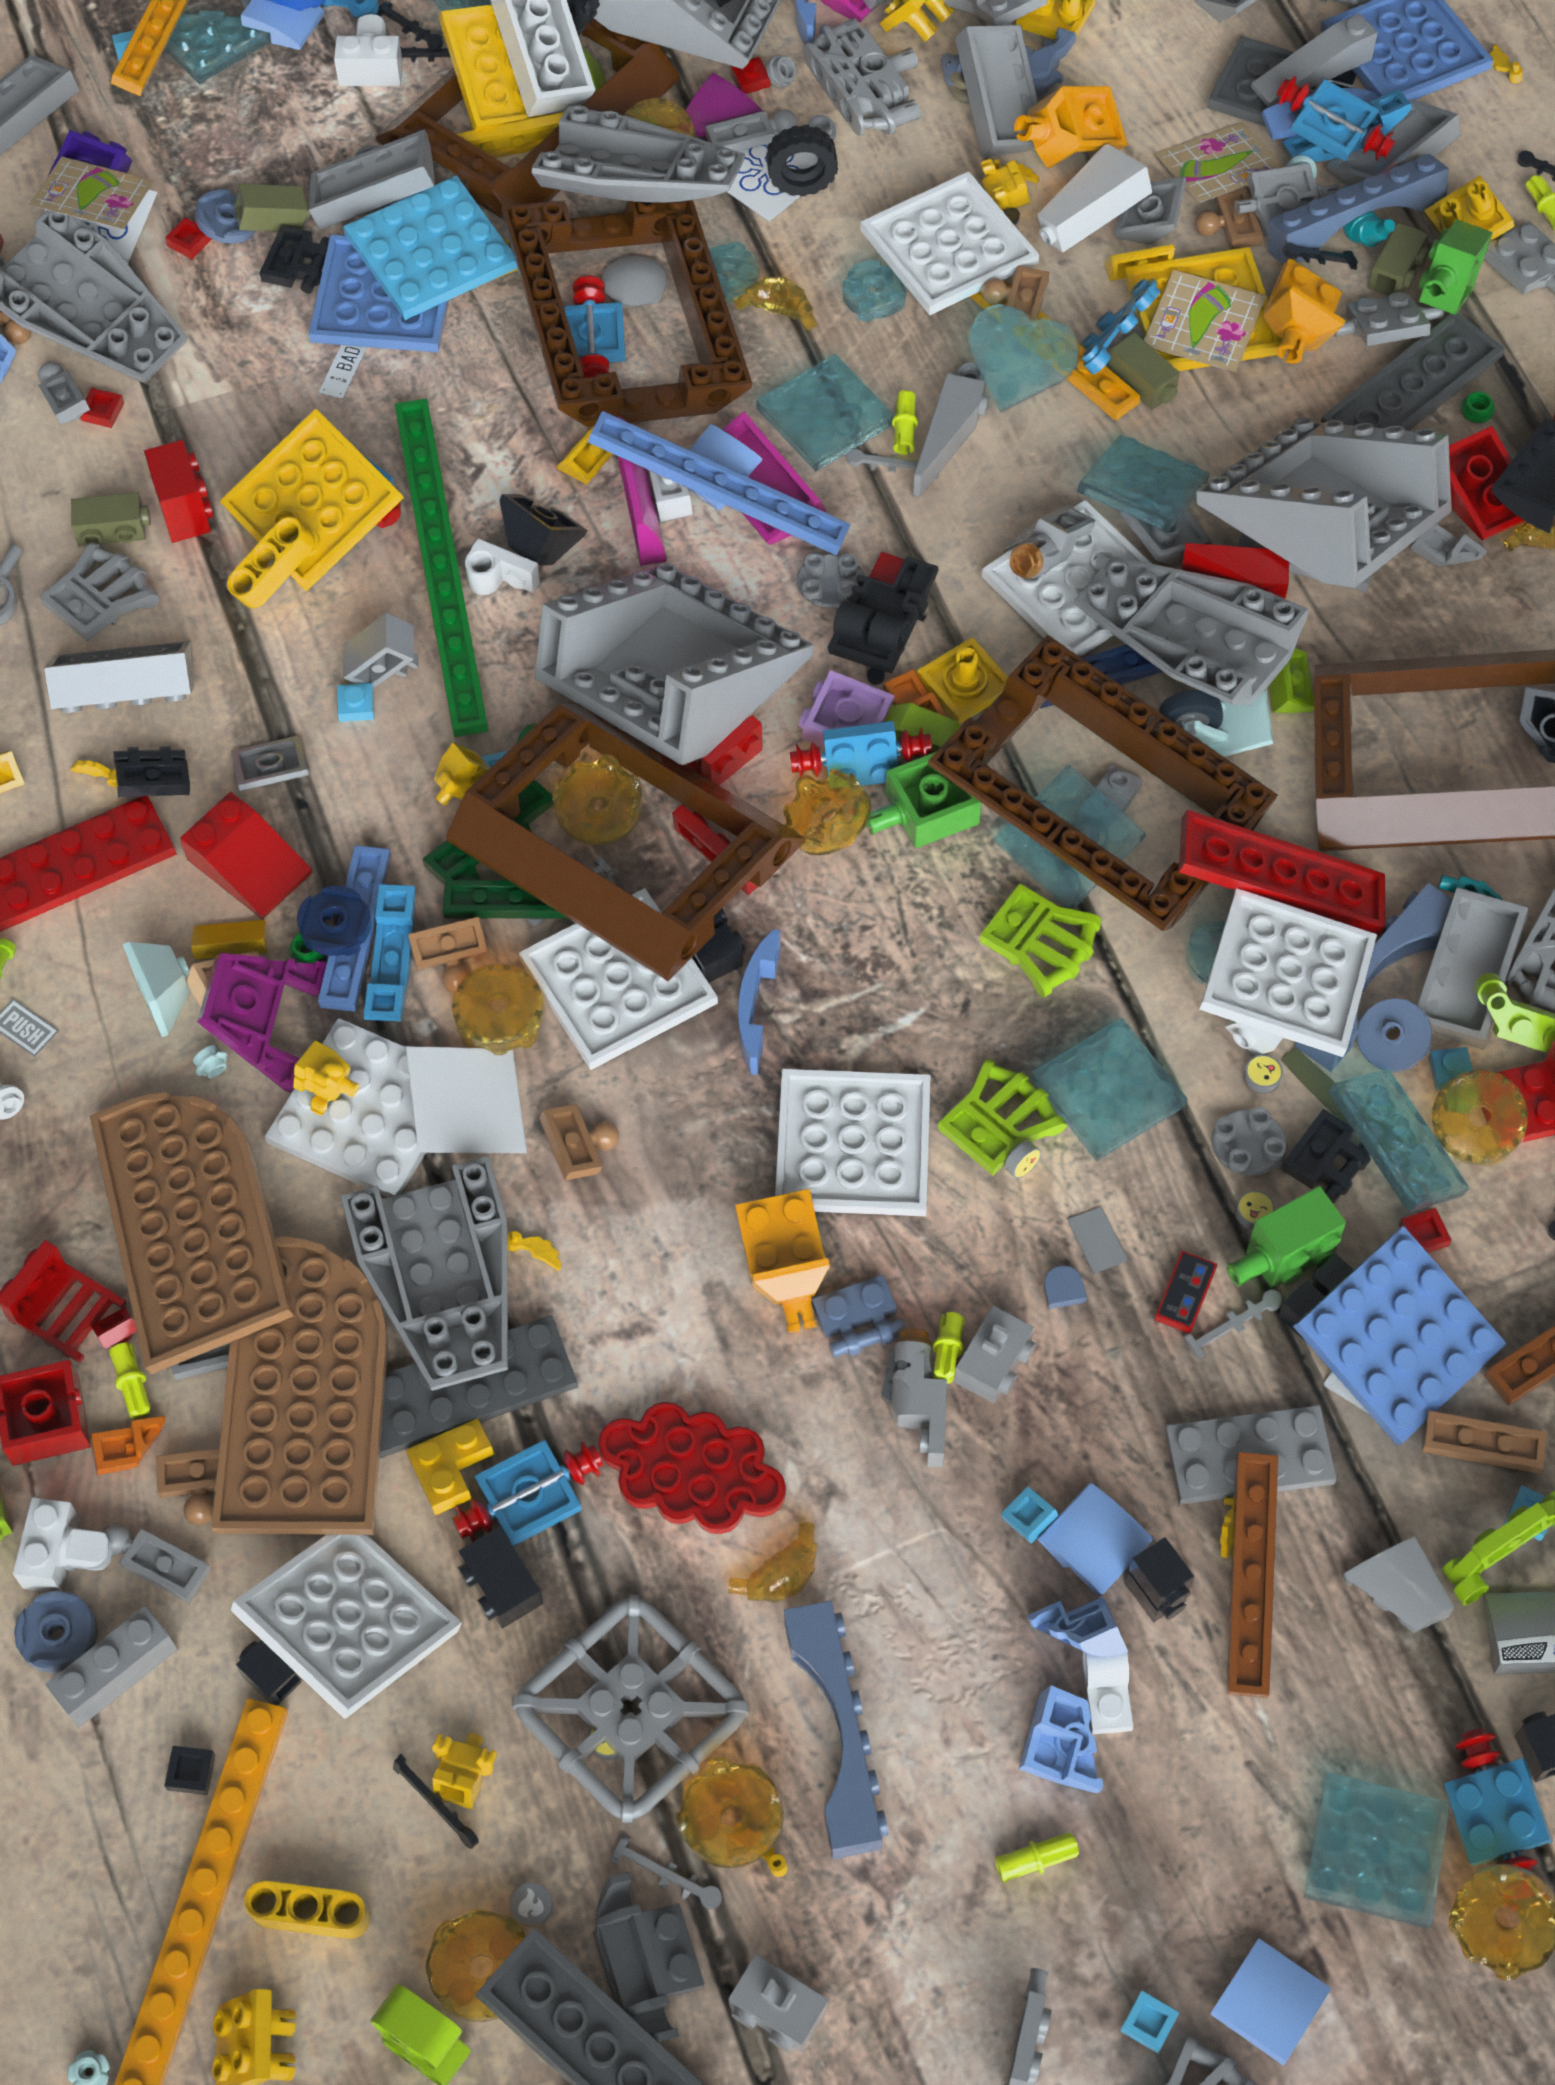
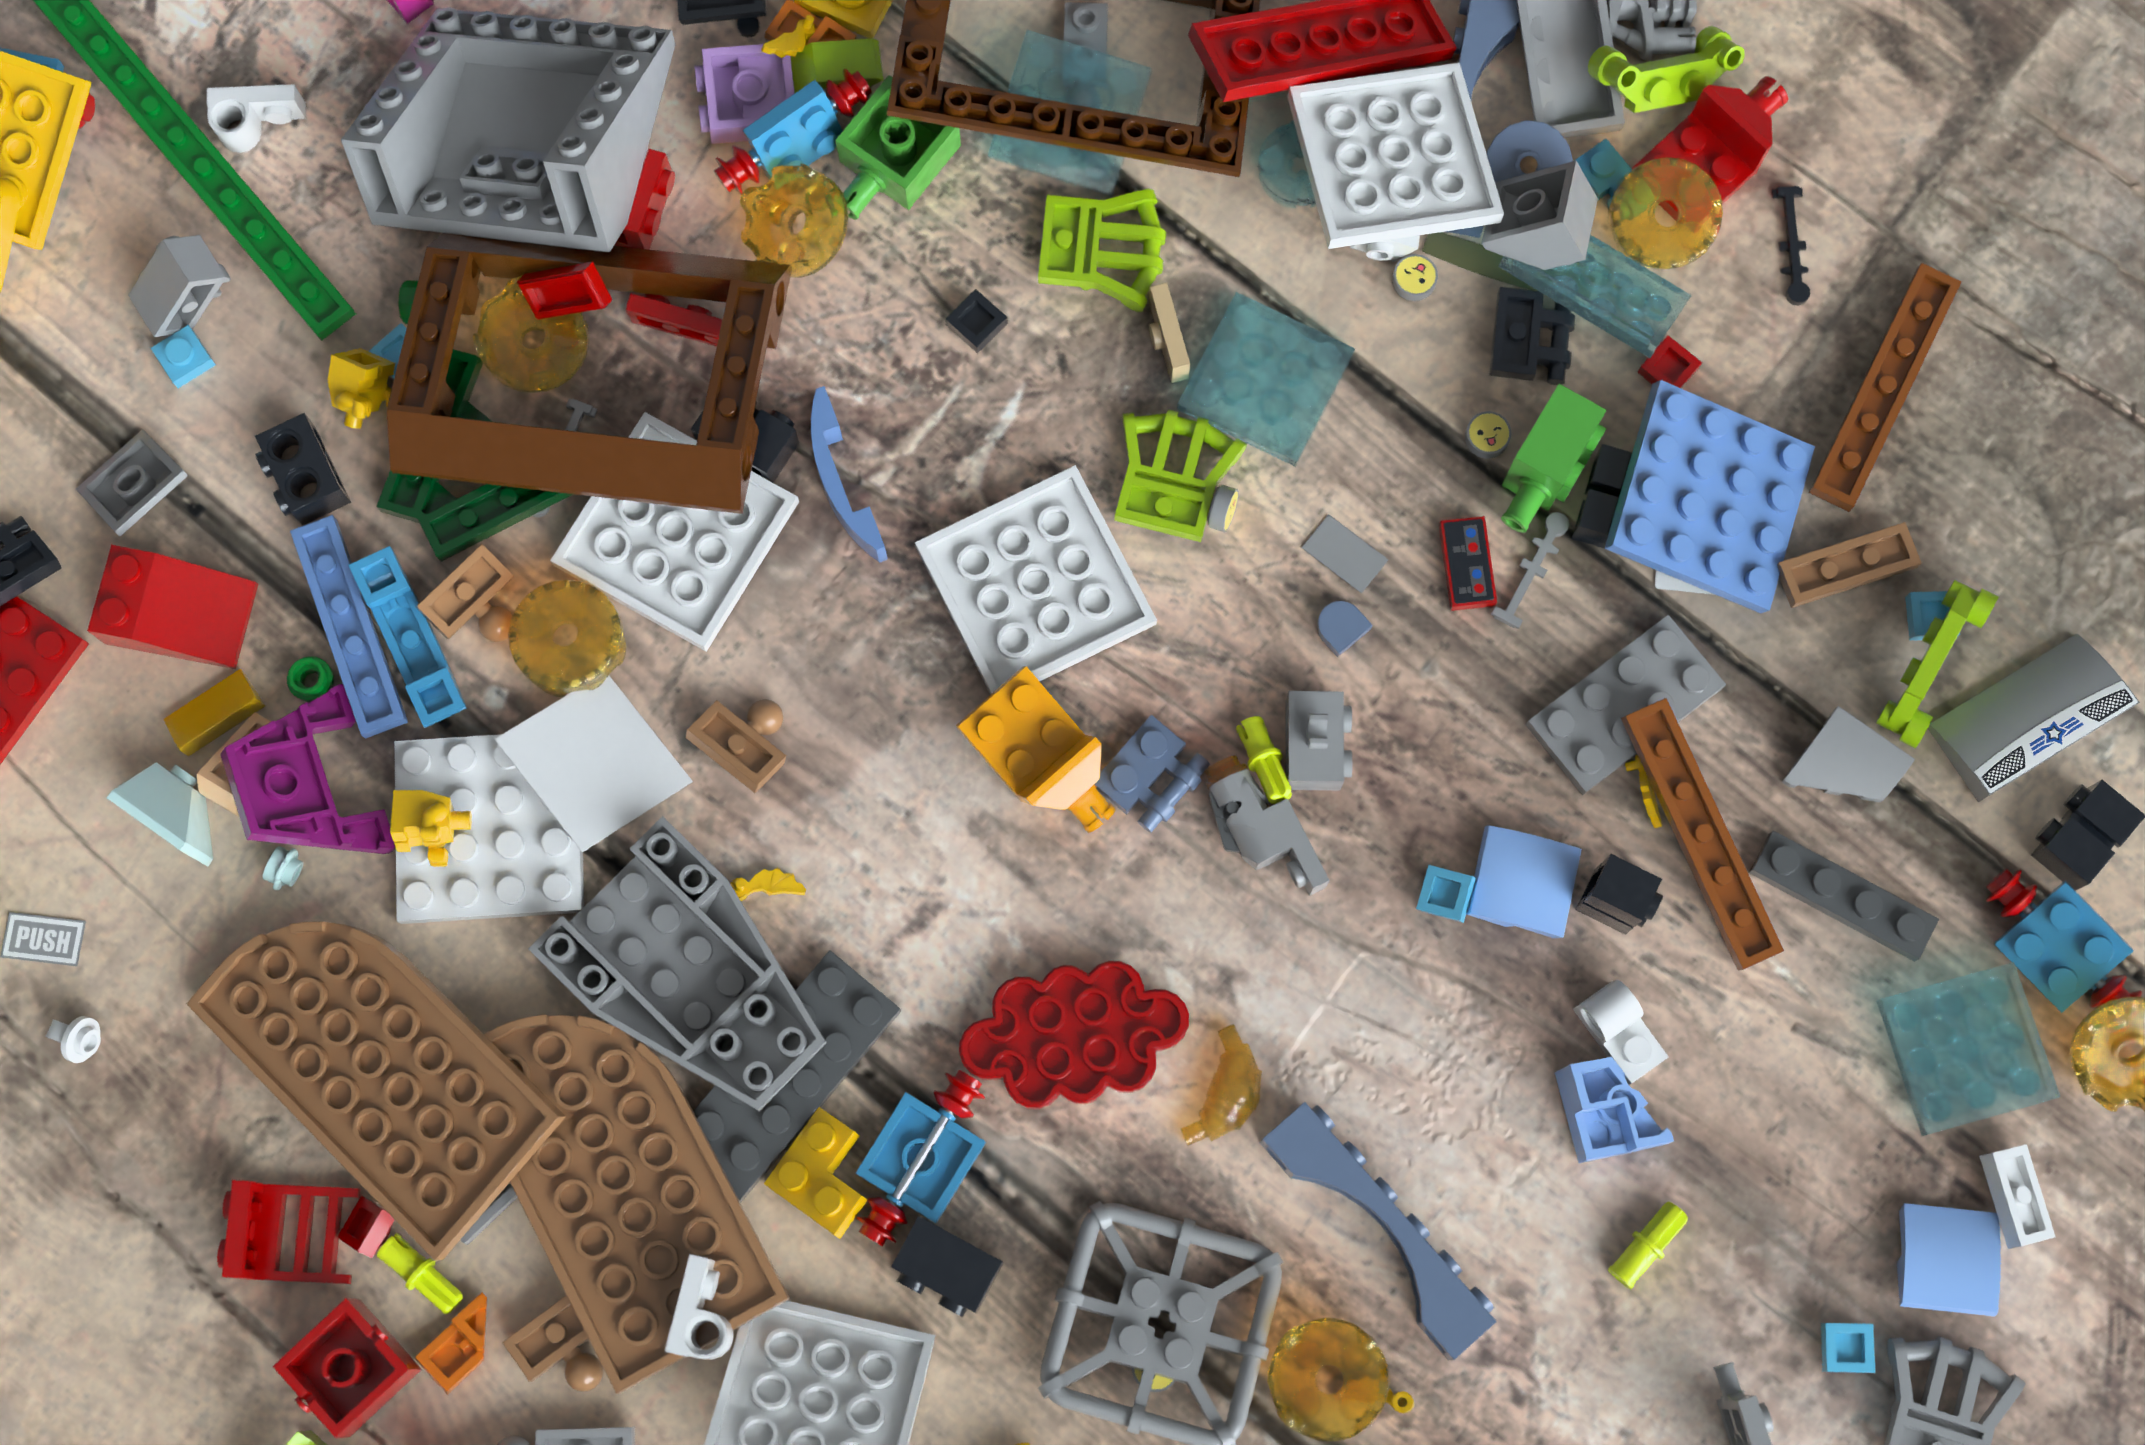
camera: 30 degrees left, 15 degrees up
(296, 1498) = (697, 1285): none -> white plate
(337, 939) = (301, 623): dark blue plate -> none
(393, 810) = (308, 466): none -> black brick
(536, 531) = (268, 43): black slope -> none
(636, 777) = (564, 290): none -> red tile
(896, 696) = (792, 42): none -> yellow piece
(918, 944) = (976, 321): none -> black plate
(1052, 1018) = (1166, 333): none -> tan plate
(1085, 1628) = (1568, 986): light blue slope -> none
(1249, 1141) = (1442, 362): light grey dish -> none
(1343, 1684) = (1844, 896): none -> dark grey plate
(1353, 1982) = (2017, 1196): none -> white plate
(1380, 1071) = (1544, 217): none -> light grey slope

